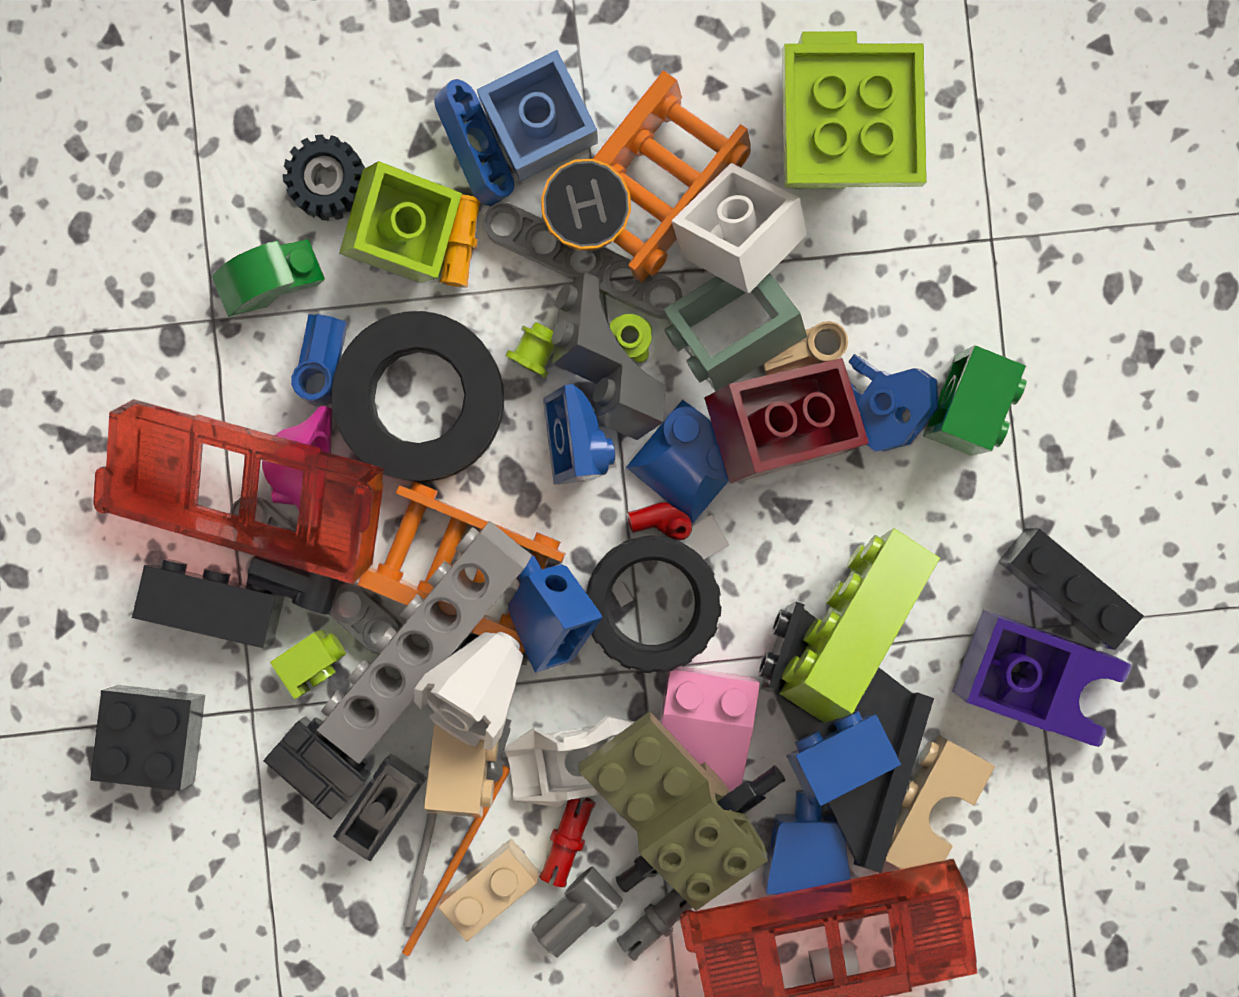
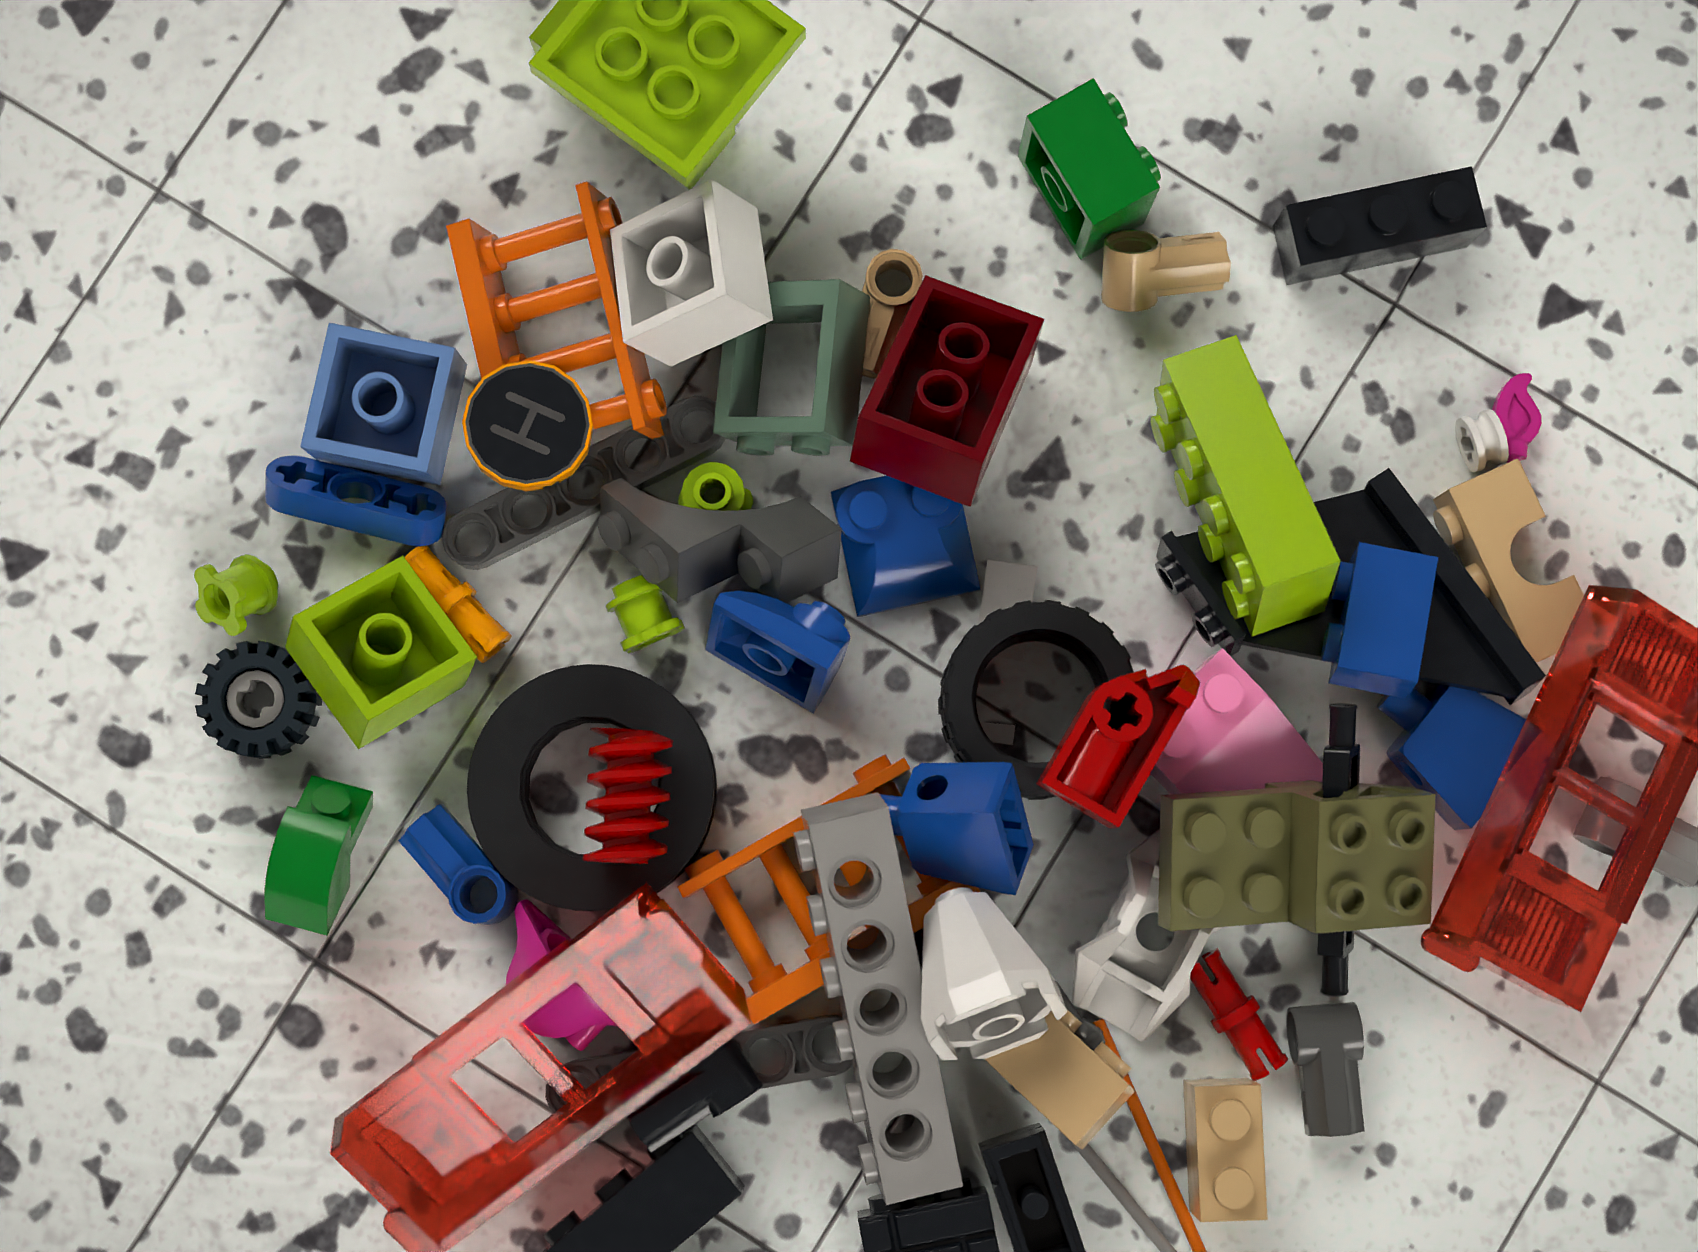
camera: 50 degrees left, 5 degrees down
(308, 661) = (797, 1154): lime brick -> none
(373, 118) = (235, 592): none -> lime brick
(425, 421) = (627, 796): none -> red piece
(639, 671) = (1107, 767): none -> red piece
(655, 923) = (1408, 986): dark grey pin -> none
(663, 518) = (947, 618): red arm -> none
(887, 400) = (1011, 263): blue hinge -> none
(944, 475) = (1145, 267): none -> tan piece
(991, 737) = (1482, 440): none -> white bush
(1019, 746) = (1518, 415): none -> dark pink piece
(1048, 682) = (1463, 326): dark purple brick -> none

